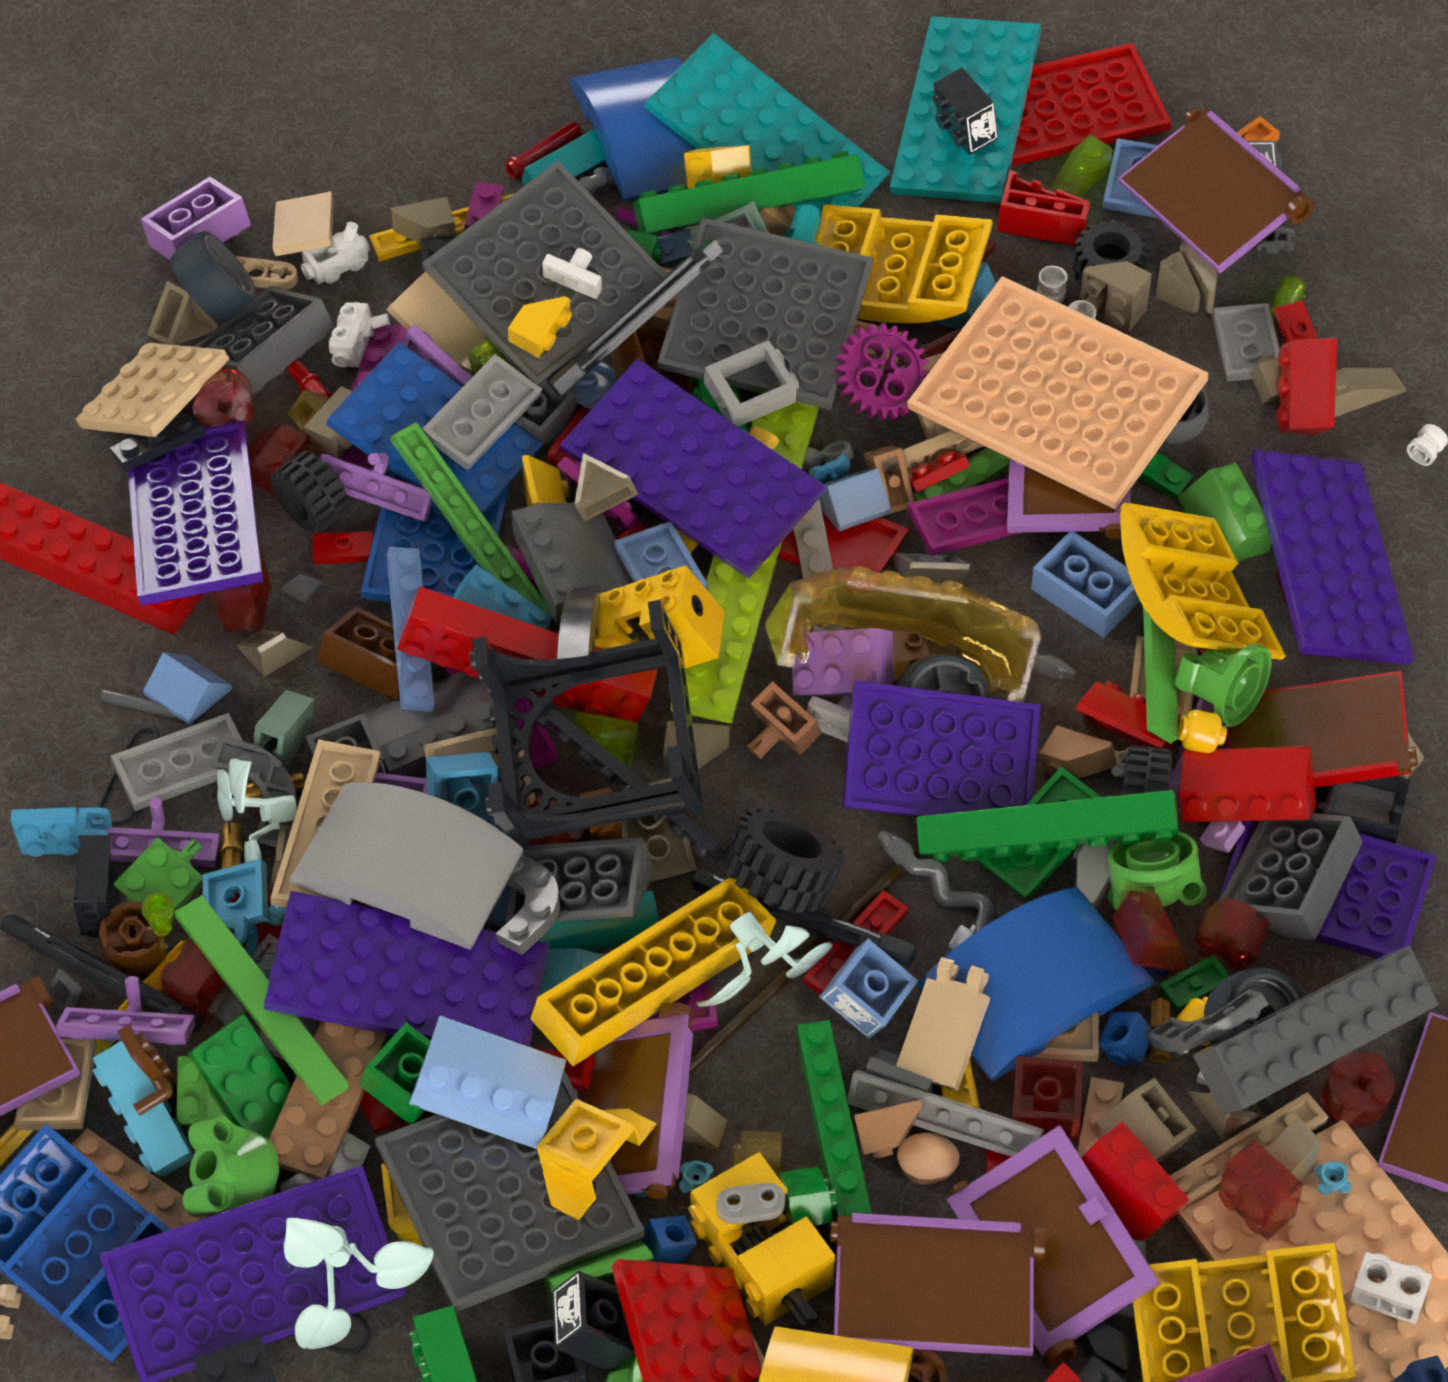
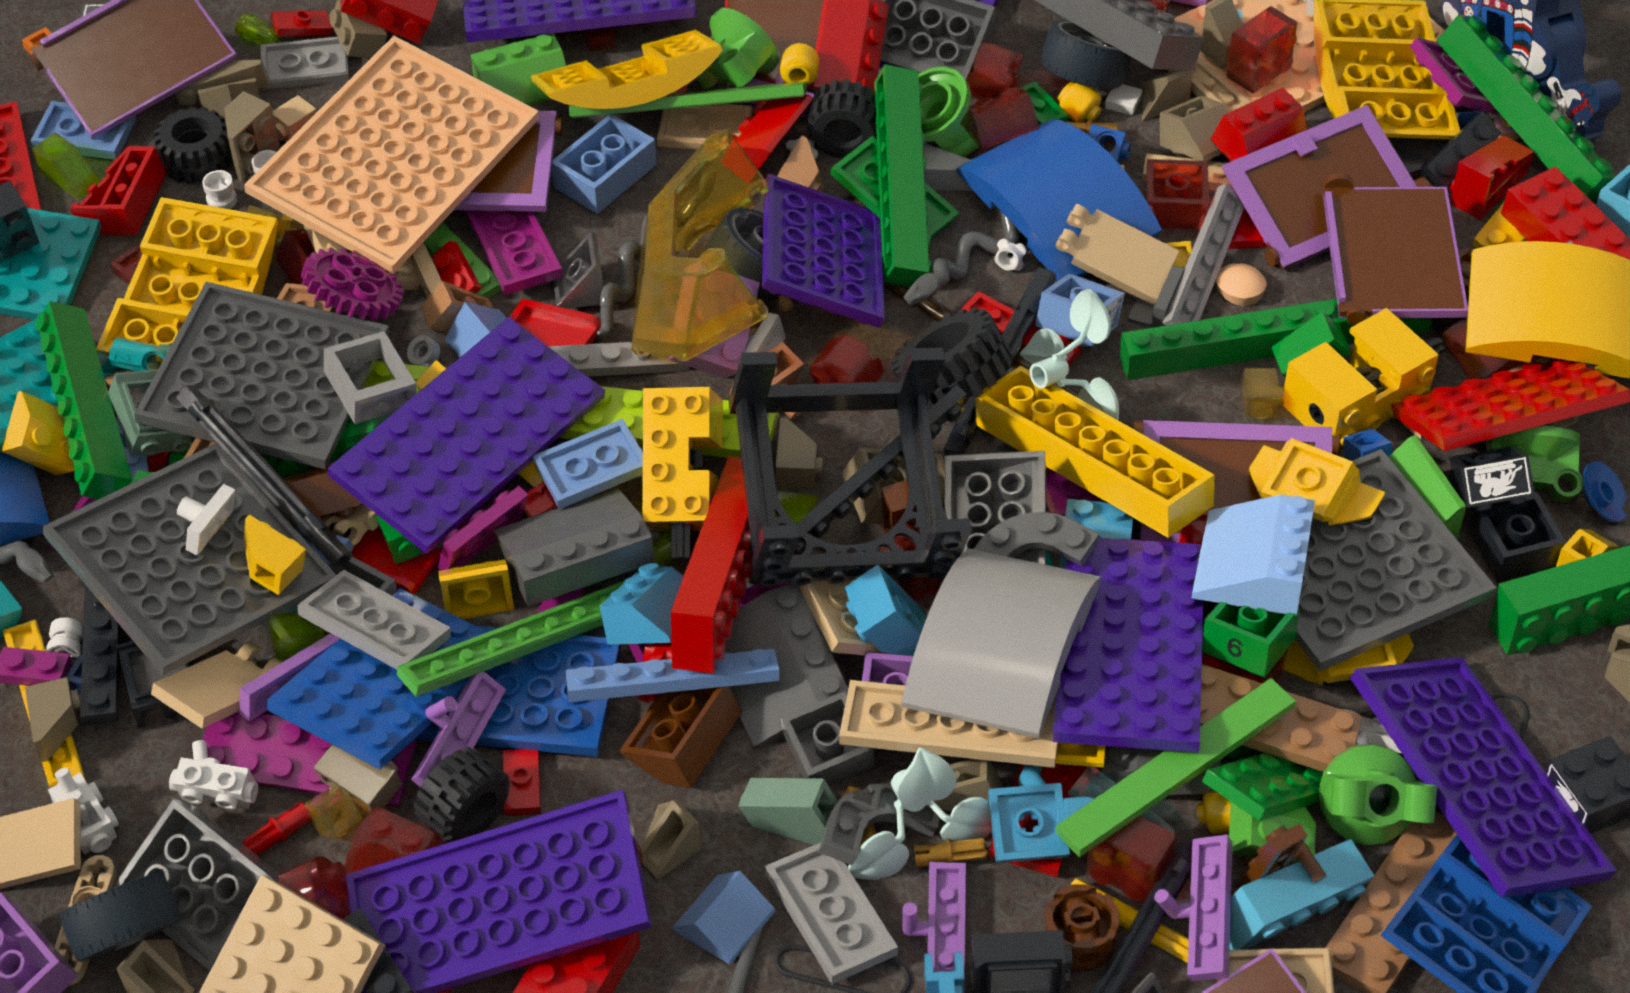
camera: 90 degrees left, 5 degrees down
(159, 912) = (1079, 869): clear neon green cone -> none
(162, 871) = (995, 904): bright green plate -> none
(311, 1241) = (1454, 685): light aqua plant -> none
(578, 626) = (706, 486): black slope -> none
(600, 488) = (504, 500): dark tan slope -> none
(751, 1205) = (1345, 356): light grey plate -> none
(790, 781) = (845, 362): none -> clear red brick
(831, 470) = (451, 350): dark azure piece -> none
(886, 1127) = (1222, 289): medium nougat slope -> none
(1153, 331) = (292, 117): none -> tan brick
(1183, 1036) = (1126, 67): dark grey plate -> none

